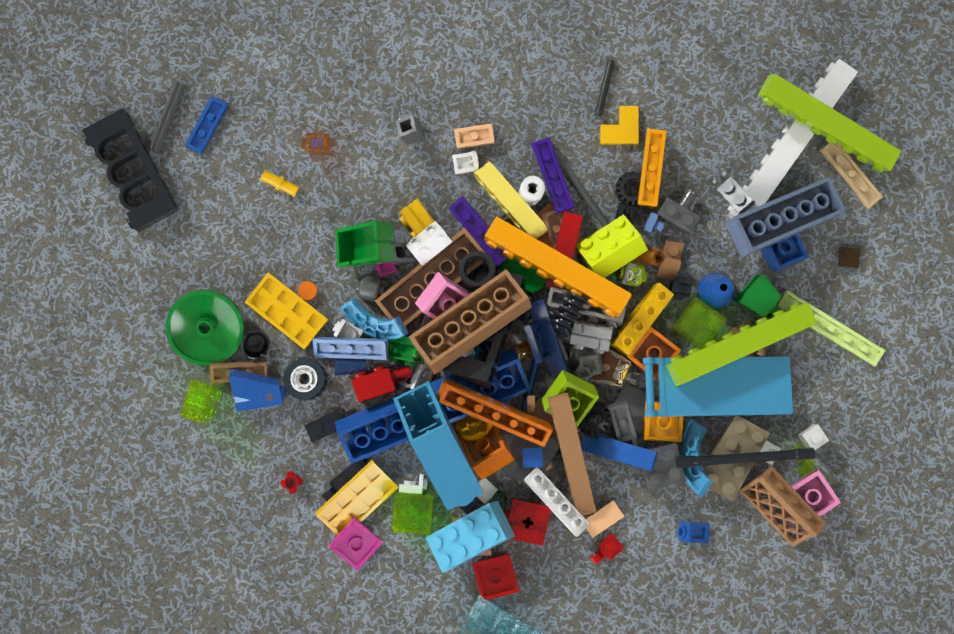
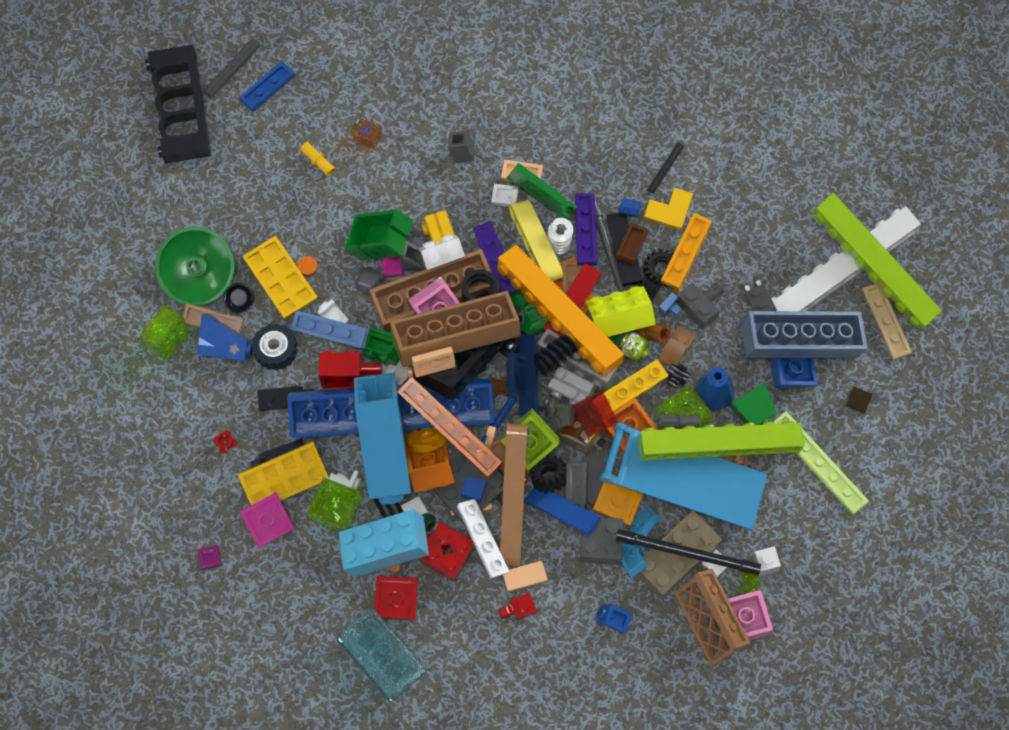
camera: 15 degrees right, 15 degrees down
(316, 593) = (209, 557): none -> magenta tile
(349, 366) = (323, 344): dark blue piece -> none
(371, 325) = (358, 314): dark azure tile -> none
(462, 362) = (433, 361): none -> light nougat plate
(501, 153) = (541, 191): none -> green tile
(585, 138) = (630, 207): none -> blue tile
(592, 181) = (618, 225): none -> black tile
(599, 175) = (632, 243): none -> reddish brown tile
(621, 355) = (595, 413): none -> clear red piece
(699, 337) = (679, 421): none -> dark grey axle

